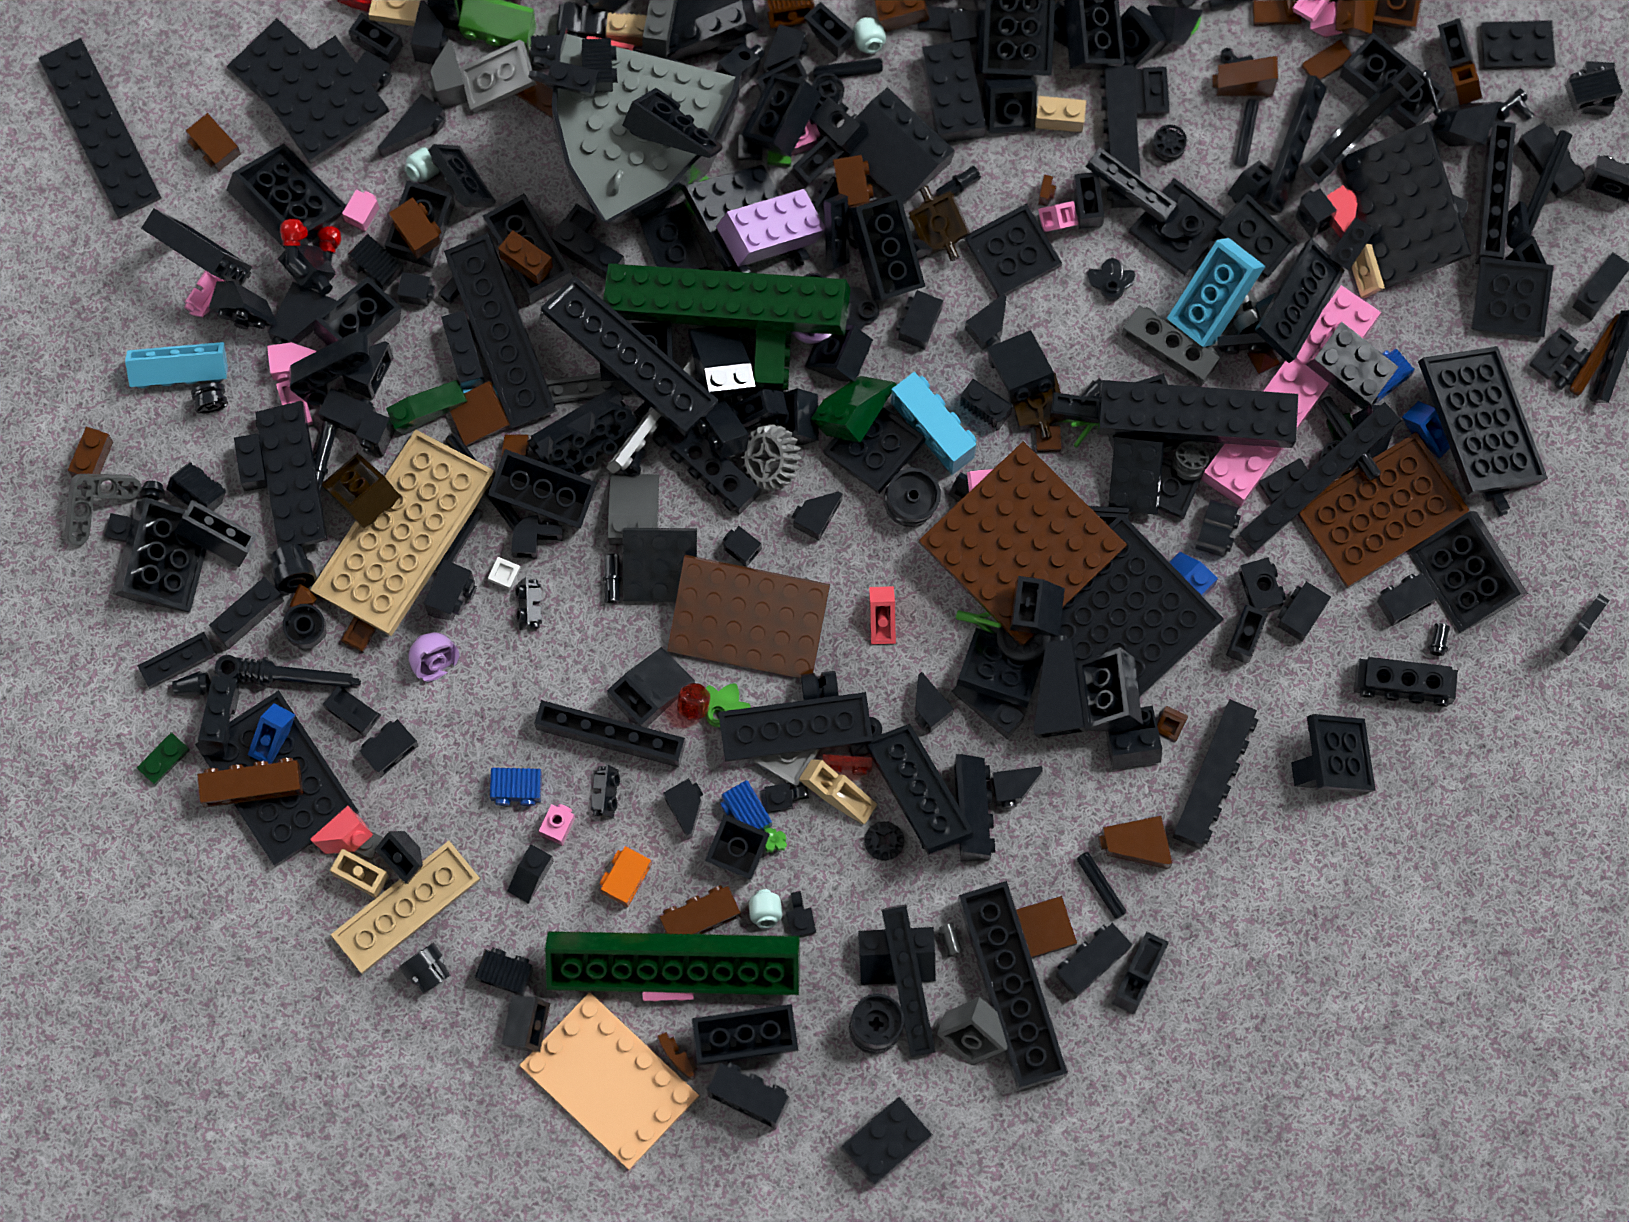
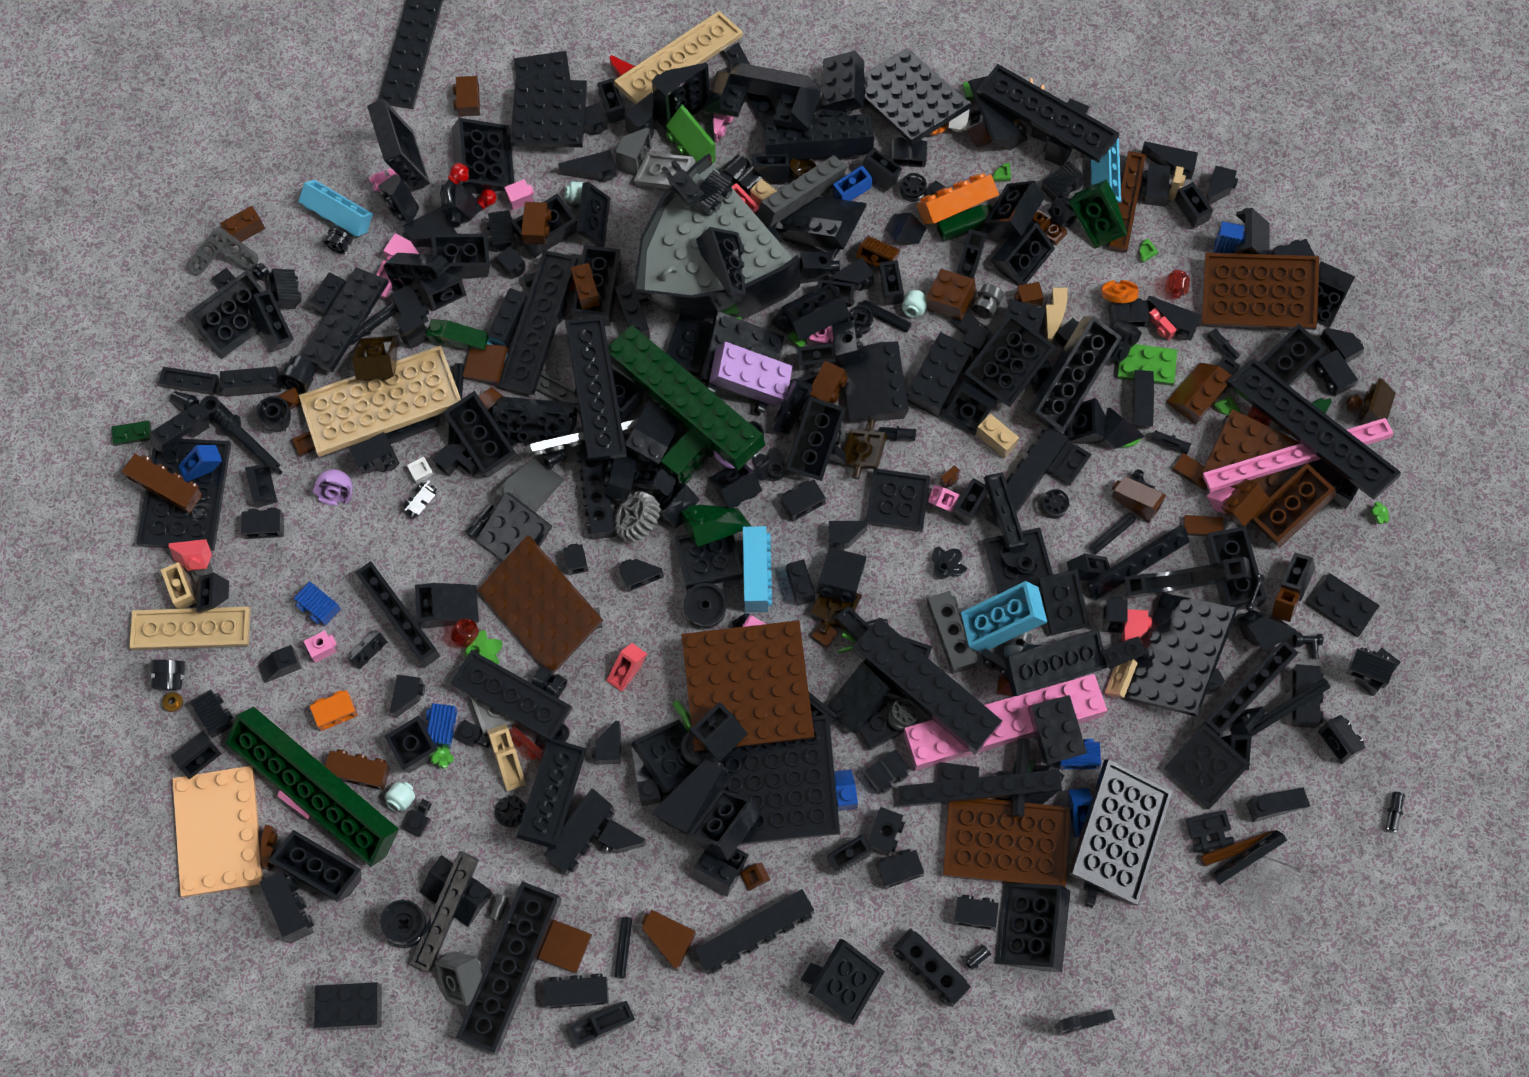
camera: 40 degrees right, 5 degrees down
(452, 1000) = (176, 705): none -> pearl gold plate

